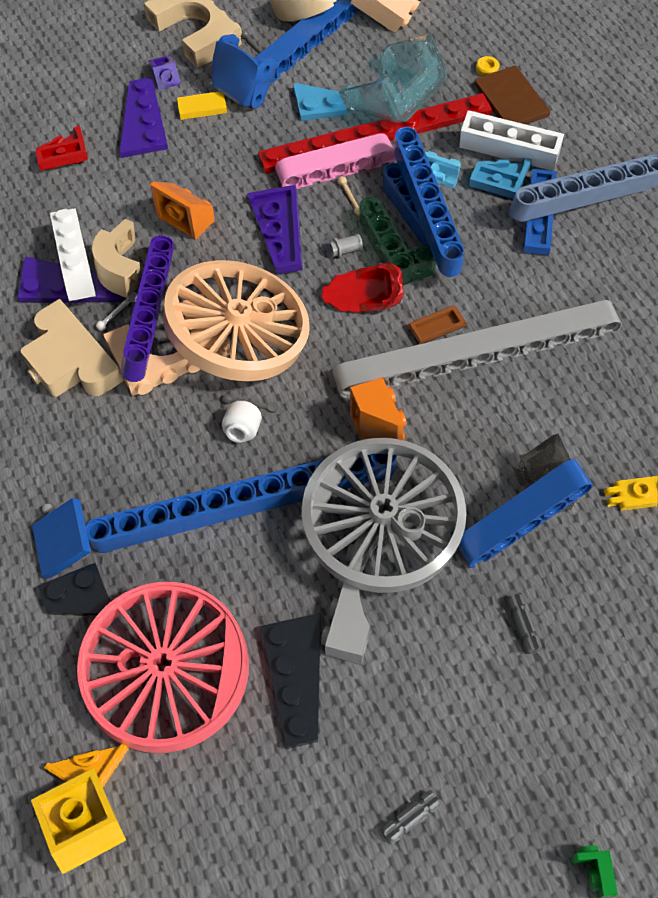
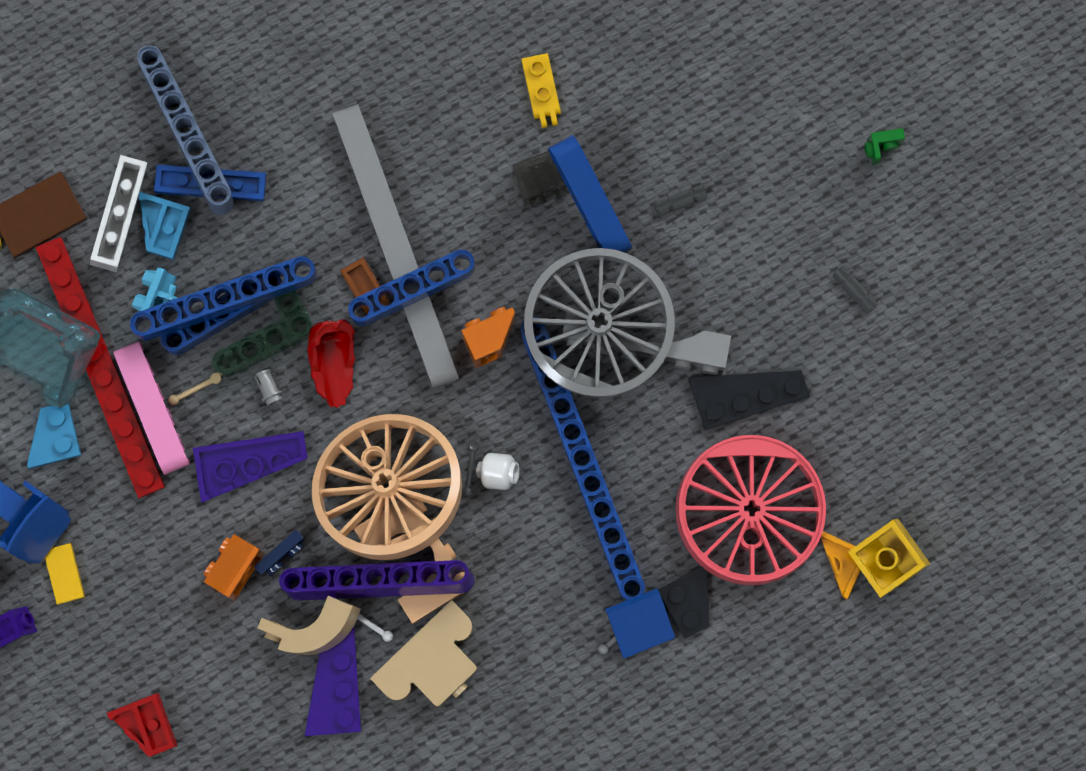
camera: 100 degrees left, 20 degrees up
(72, 254) = (310, 676): white brick -> none
(143, 123) = (96, 639): dark purple wing -> none
(188, 240) = (290, 546): none -> dark blue plate
(425, 332) = (421, 277): none -> blue beam

